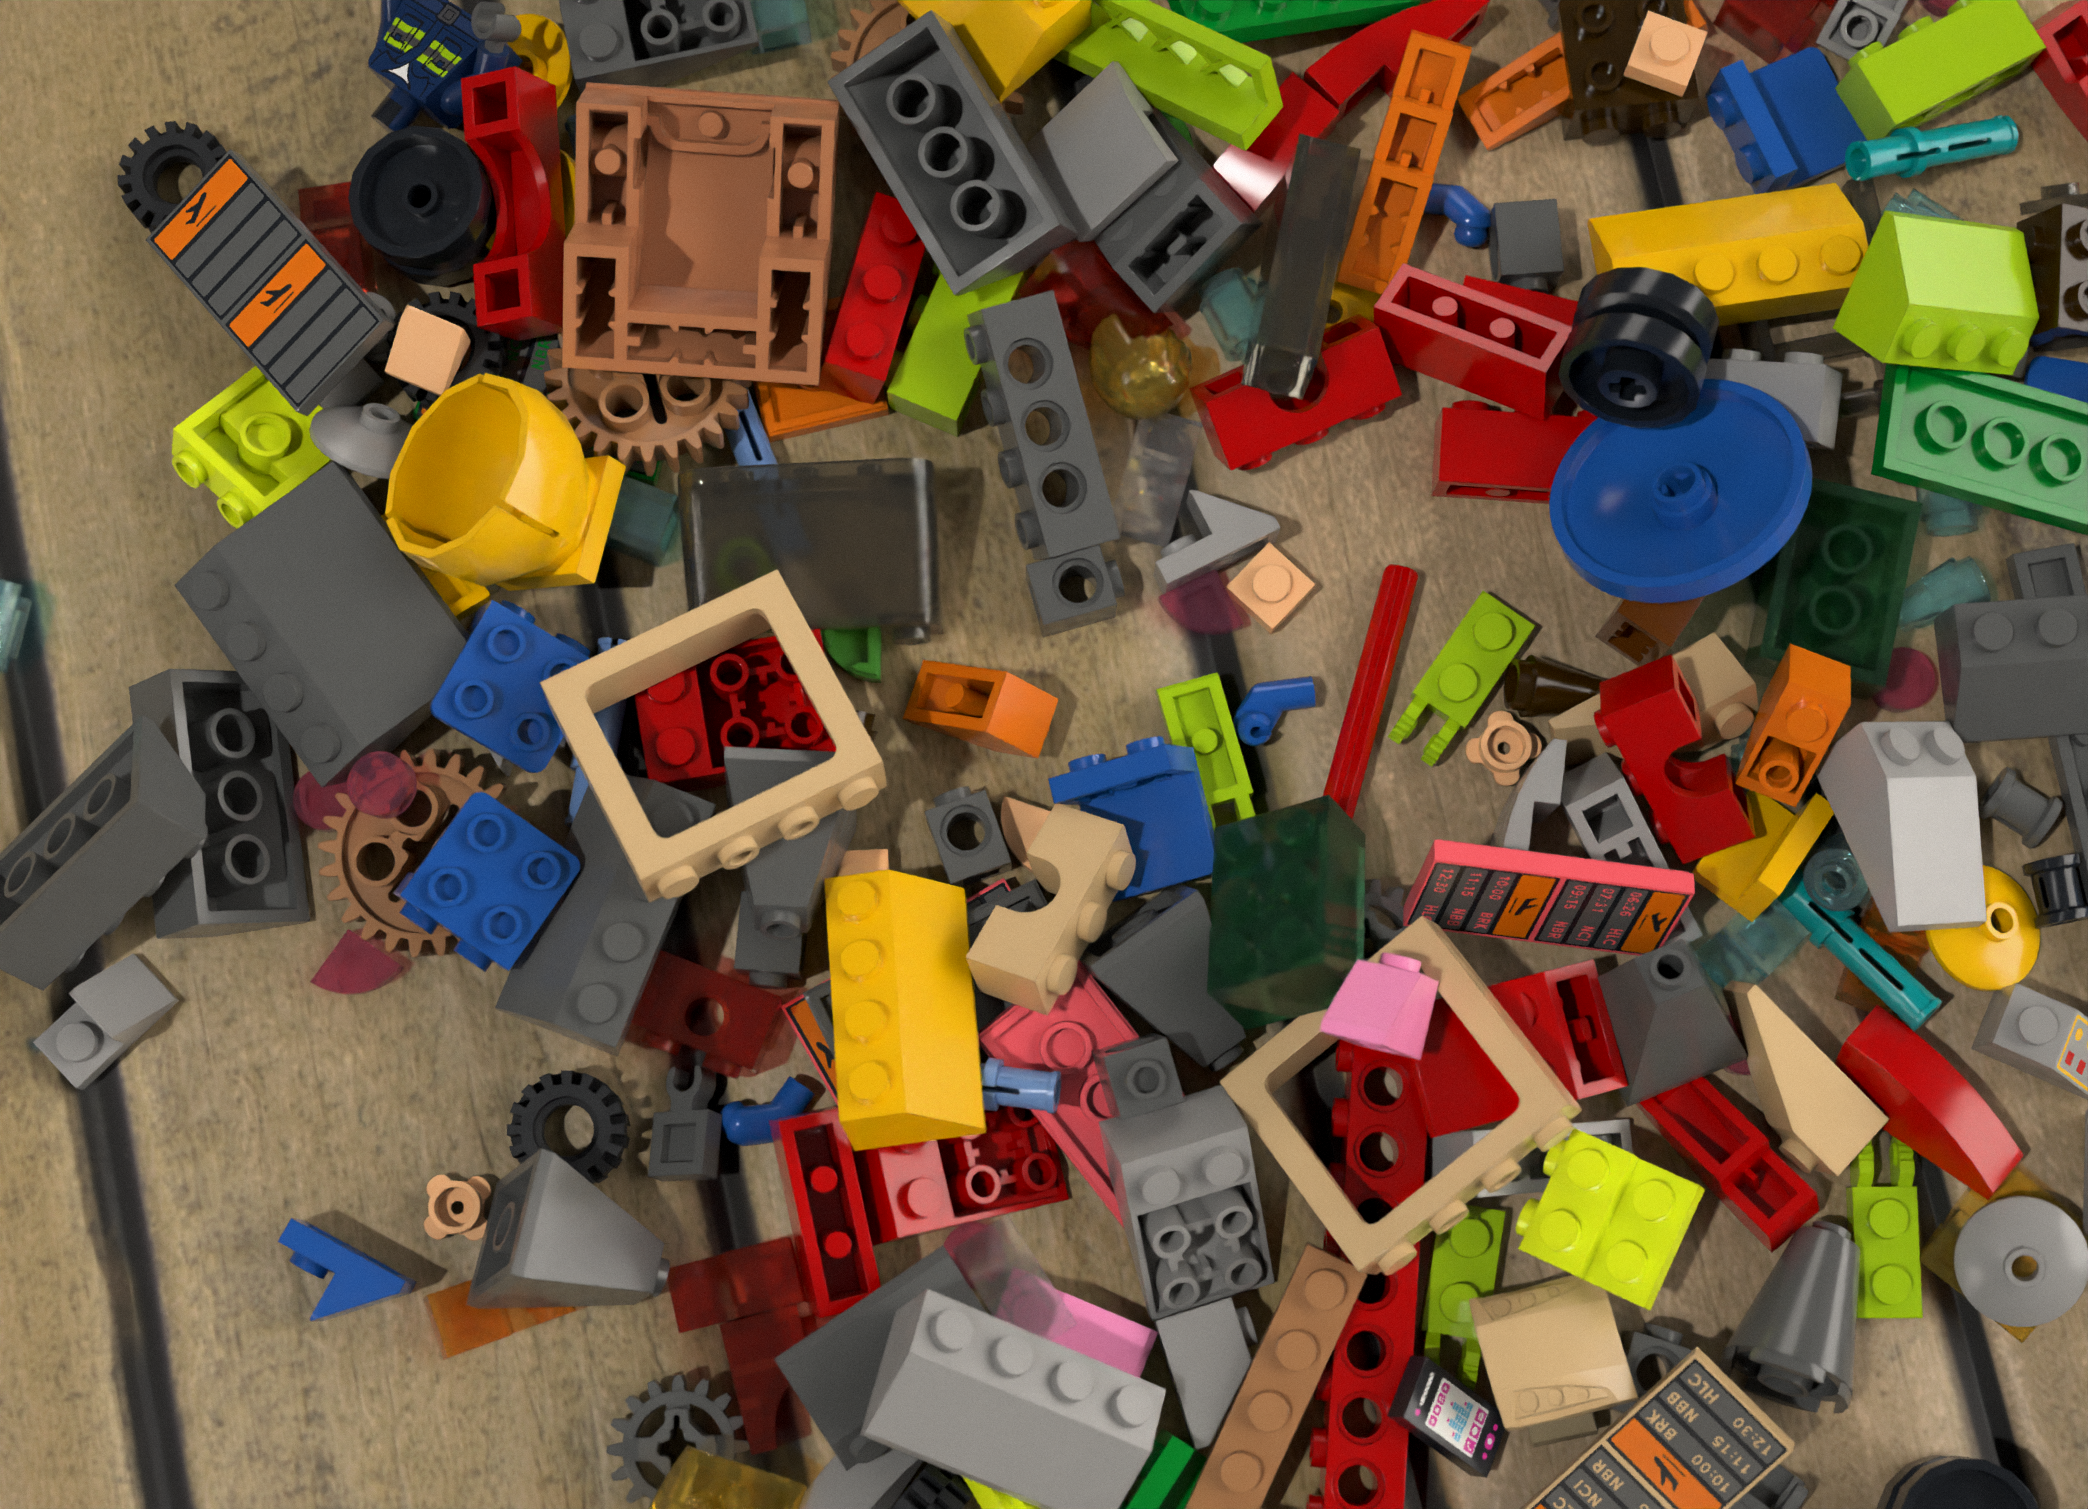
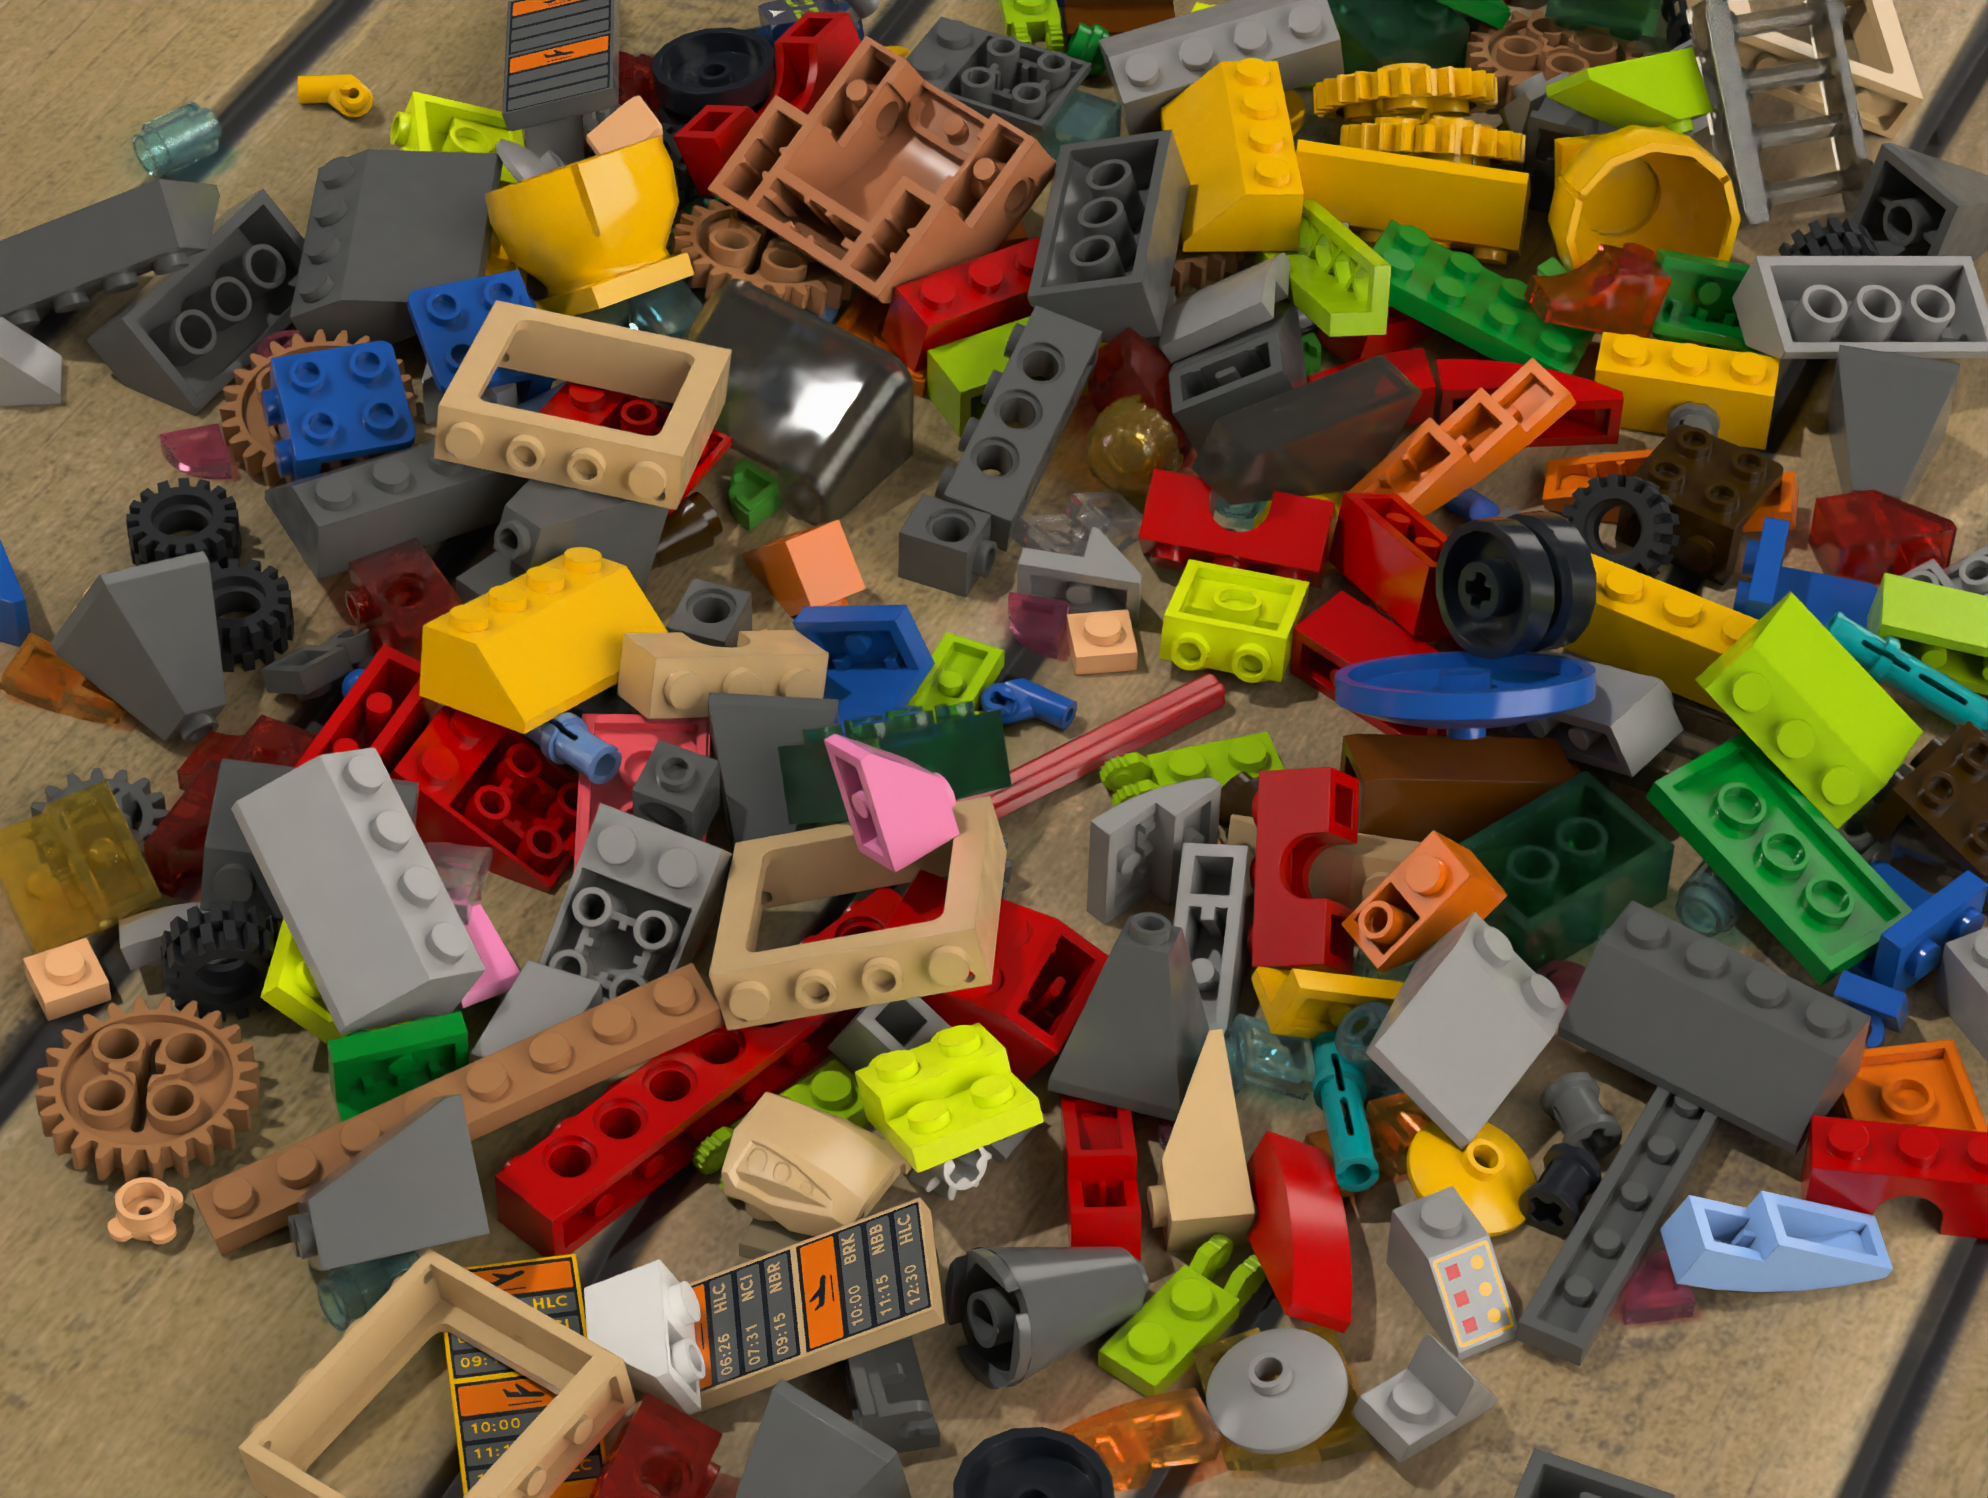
camera: 40 degrees right, 35 degrees down
(71, 443) = (340, 91): none -> yellow arm
(381, 785) = (330, 330): clear pink tile -> none
(401, 1069) = (182, 510): none -> black tyre
(1368, 493) = (1232, 621): none -> neon yellow plate
(1447, 1416) = (687, 1170): tile -> none
(1548, 898) = (1099, 866): tile -> none
(1591, 130) = (1645, 502): none -> black tyre
(1665, 53) = (1726, 478): light nougat plate -> none
(1951, 1377) = (1150, 1435): none -> clear orange slope

